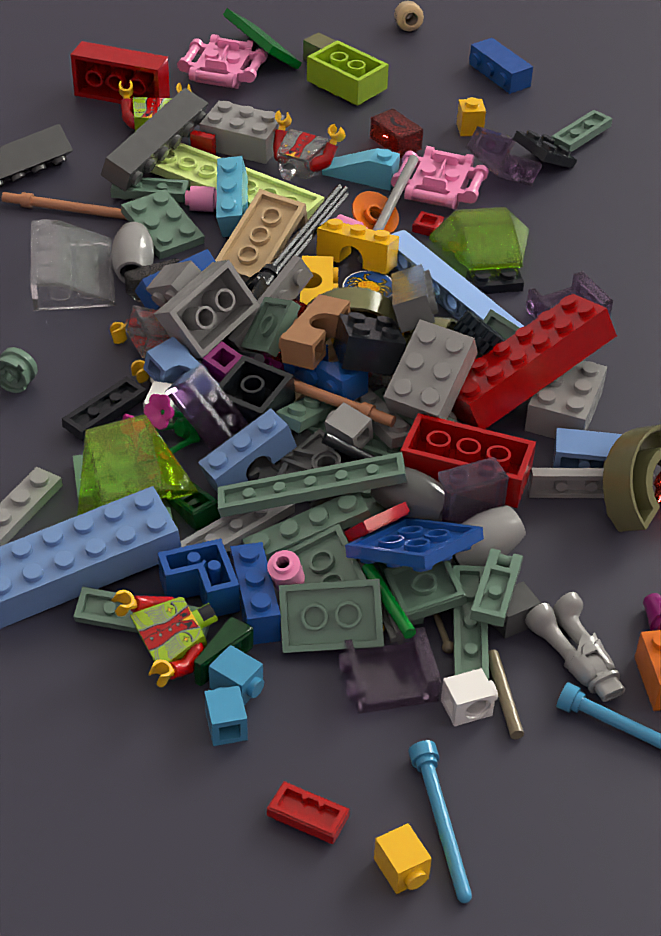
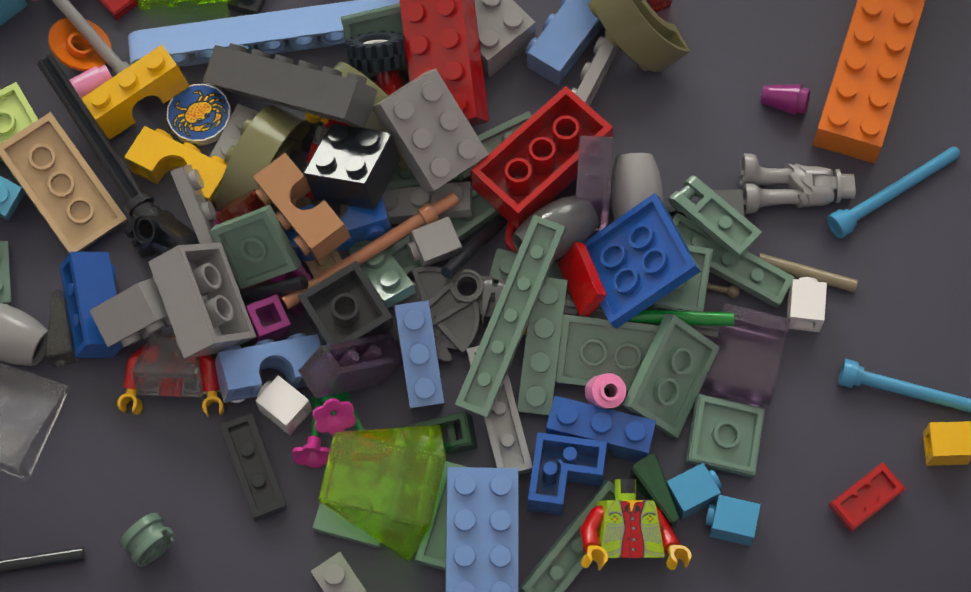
camera: 60 degrees left, 25 degrees up
(304, 683) = (725, 435): none -> sand green plate

